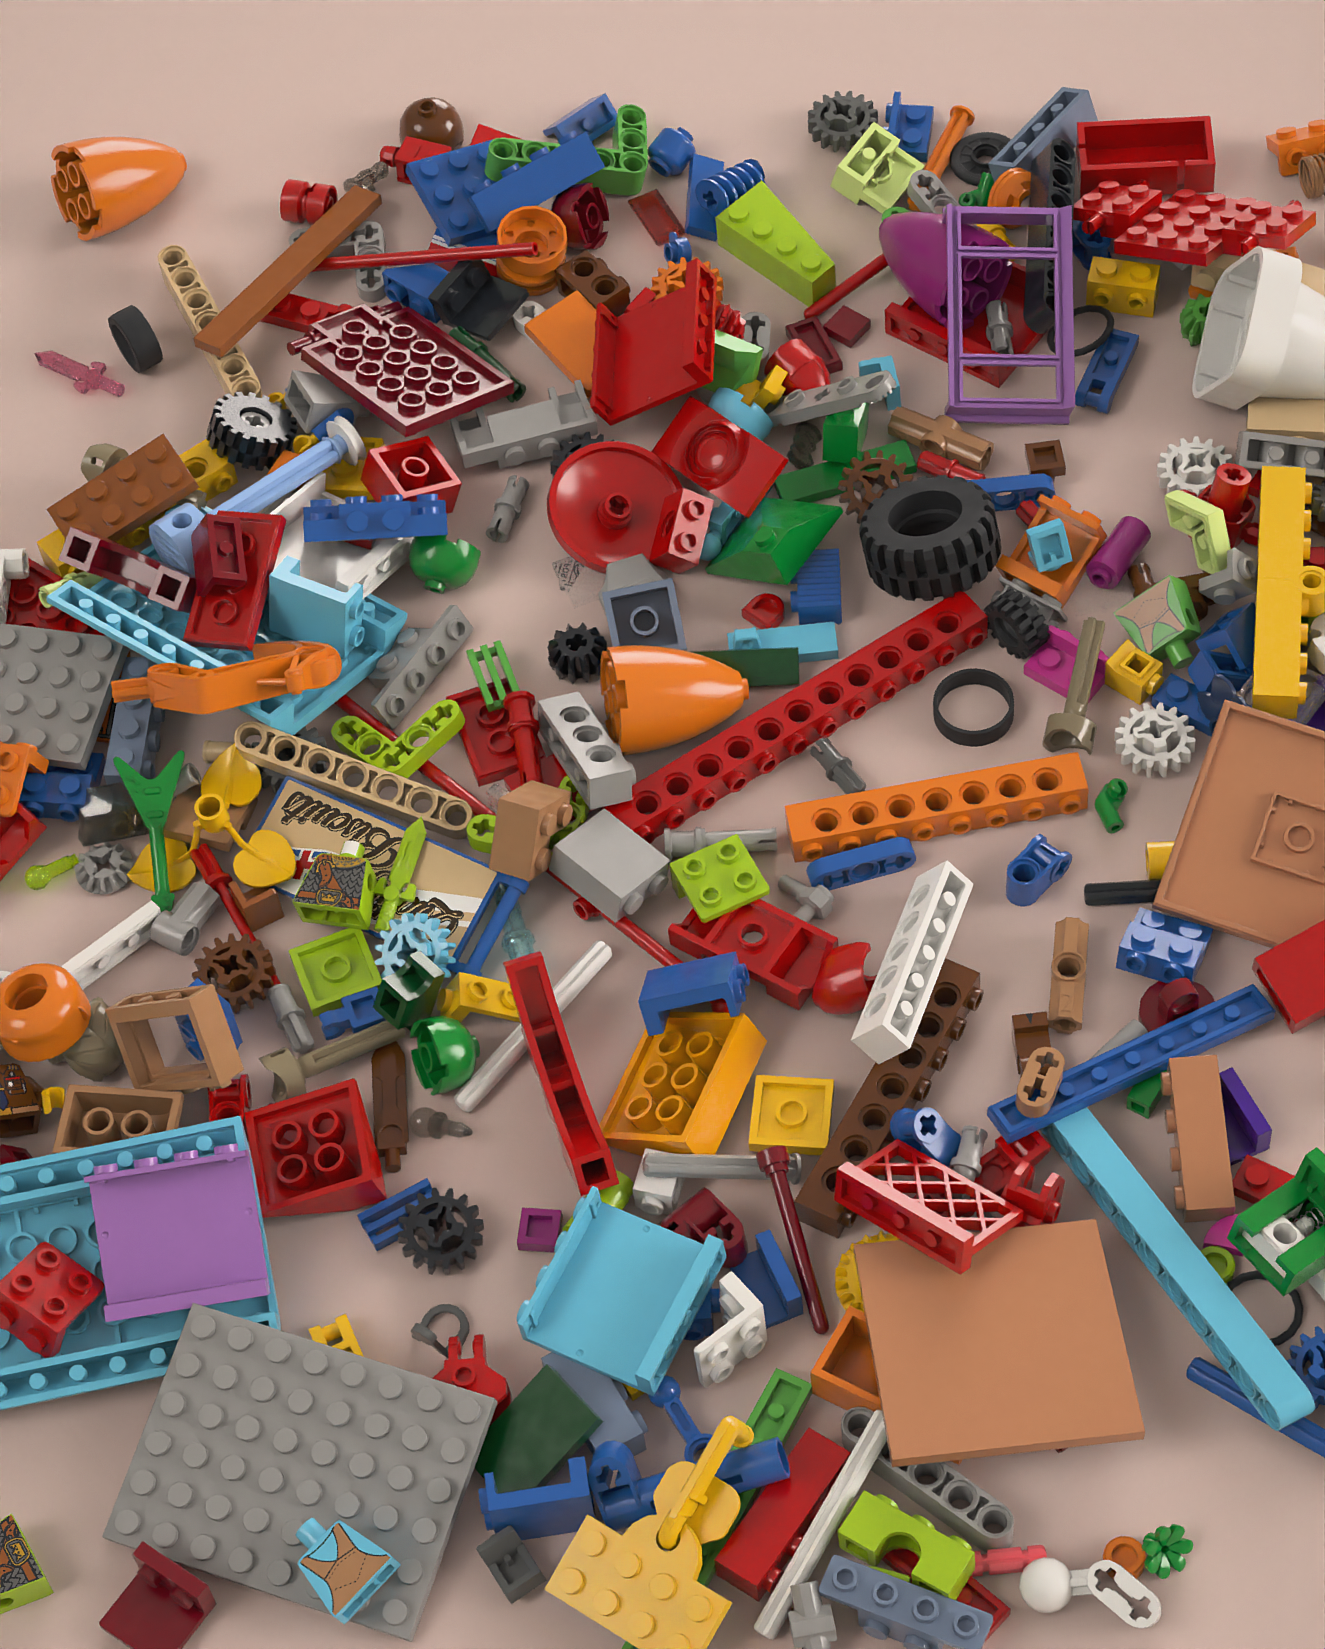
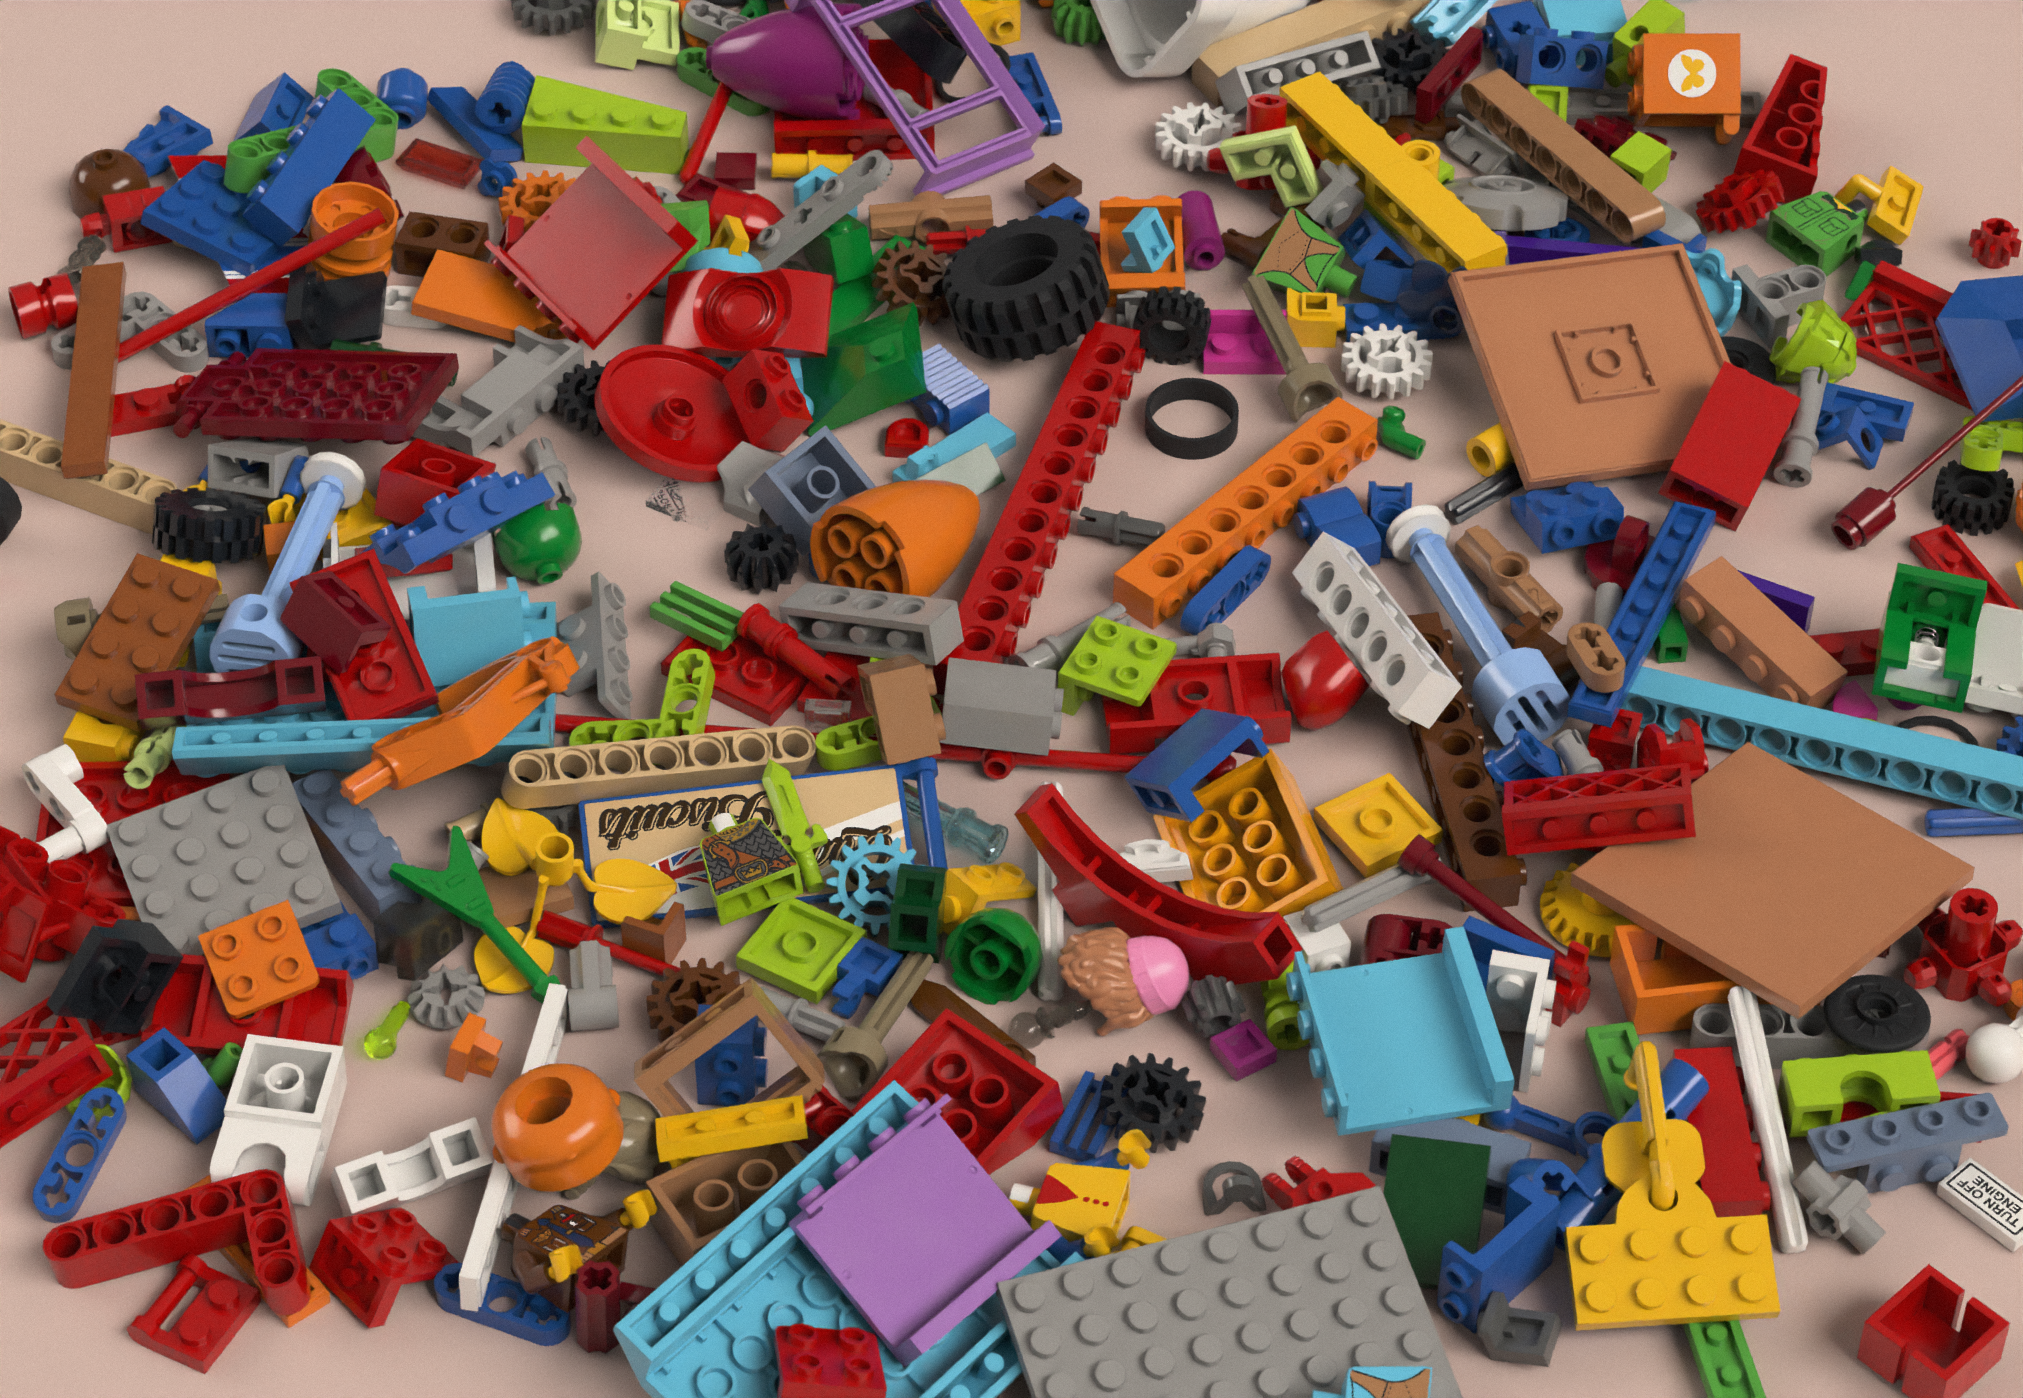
camera: 45 degrees left, 10 degrees down
(78, 916) = (473, 1050): none -> orange tile
(144, 1080) = (729, 1129): none -> yellow hinge
(324, 1279) = (1085, 1199): none -> torso
(495, 110) = (170, 137): none -> blue wing
(500, 1123) = (1125, 975): none -> nougat hair
(545, 1185) = (1213, 1005): none -> dark grey gear
(610, 1045) = (1158, 860): none -> white tile
(791, 1328) = (1571, 984): none -> red plate
(899, 349) = (801, 164): none -> yellow pin
(966, 1522) = (1907, 1012): none -> black wheel
(976, 1069) = (1514, 685): none -> light blue piece
(985, 858) = (1340, 516): none -> blue brick
(1104, 1491) = (1965, 950): none -> red piece

